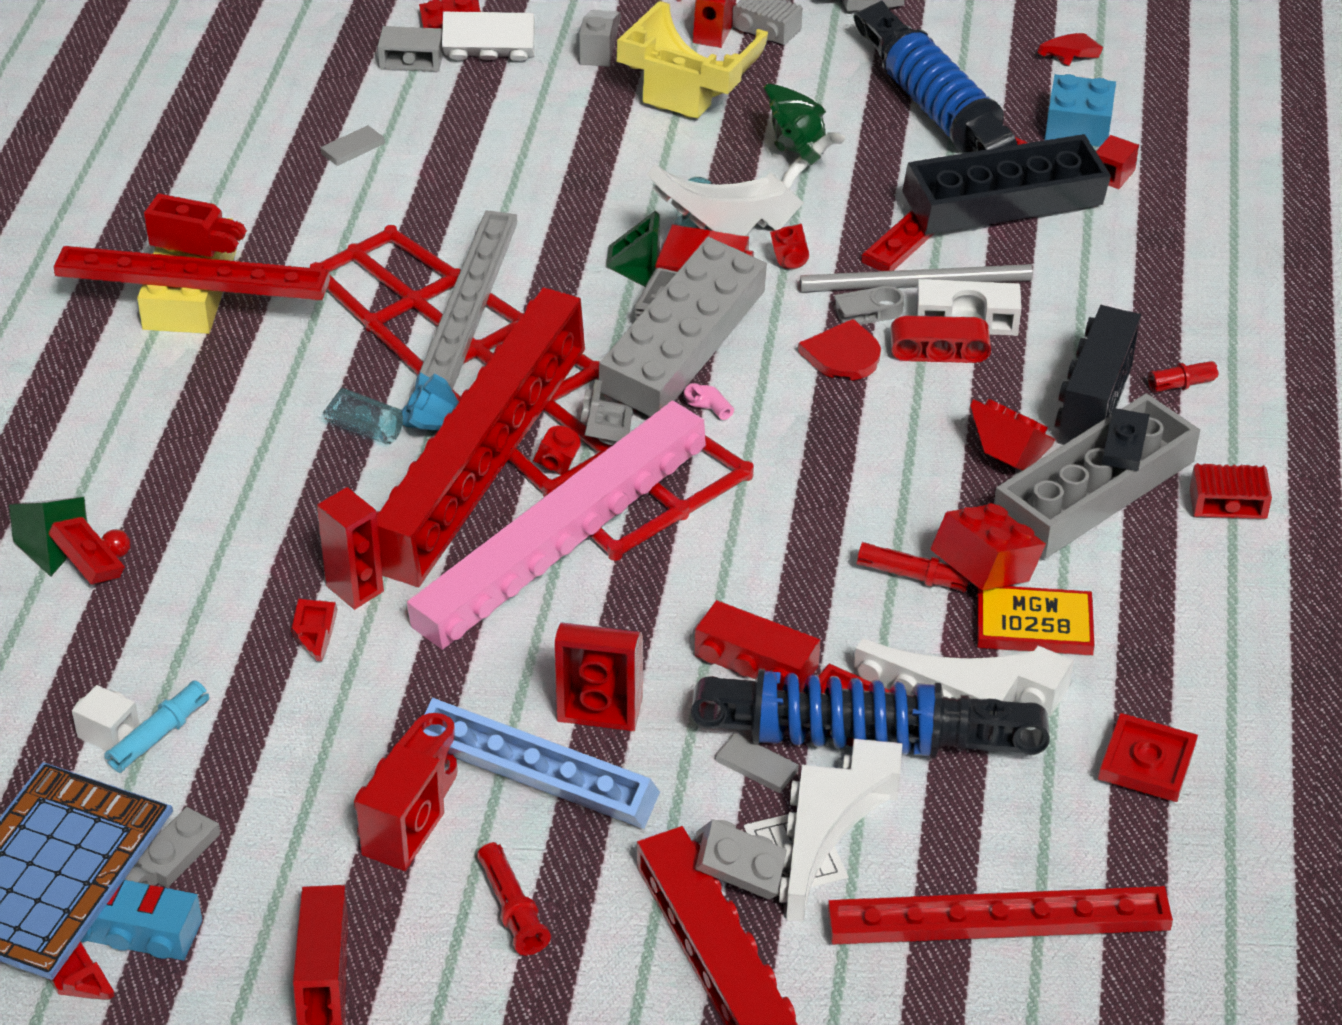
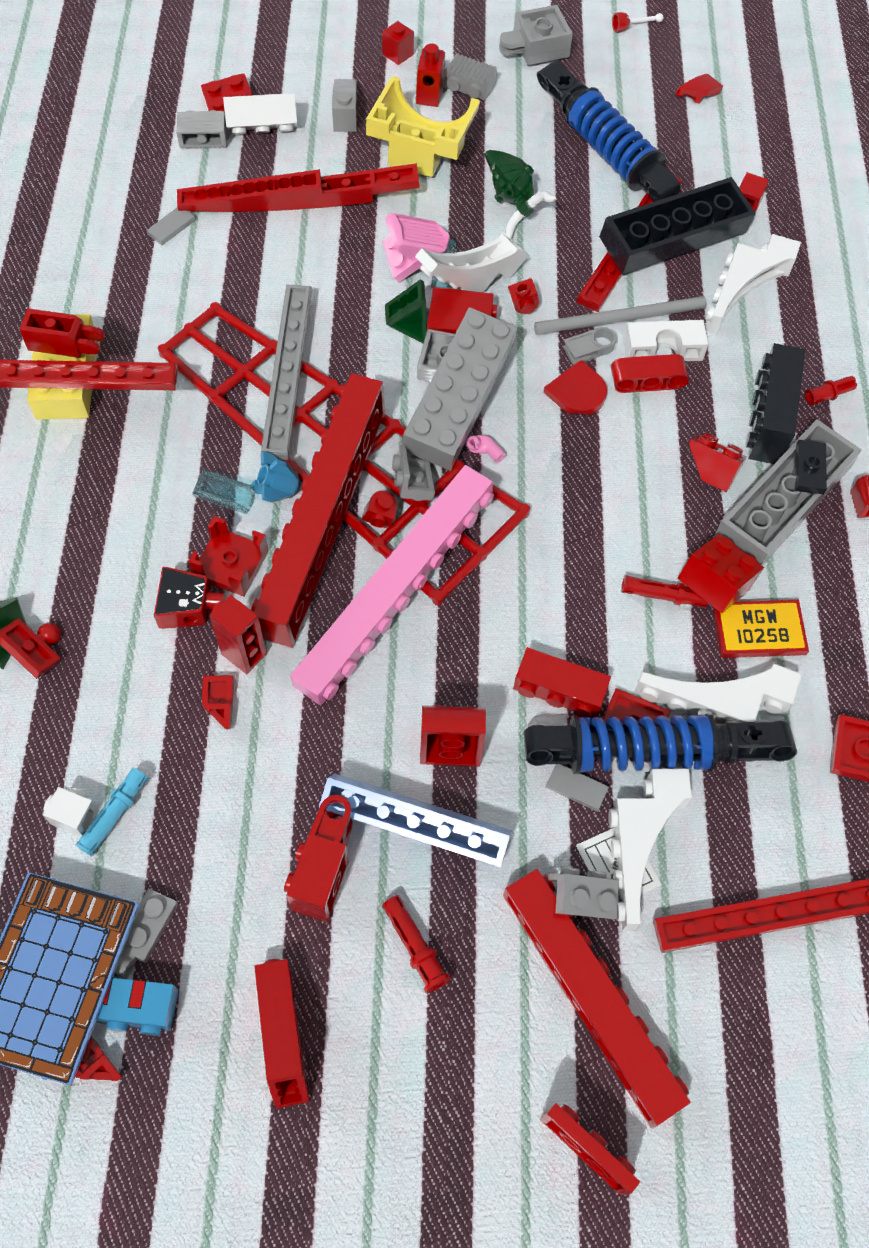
camera: 10 degrees left, 20 degrees up
(286, 520) = (184, 599): none -> torso
(363, 477) = (230, 558): none -> red panel
(521, 118) = (298, 190): none -> red slope
(635, 184) = (407, 238): none -> bright pink piece
(1080, 108) = (718, 148): dark azure brick -> none
(1095, 241) = (747, 271): none -> white arch

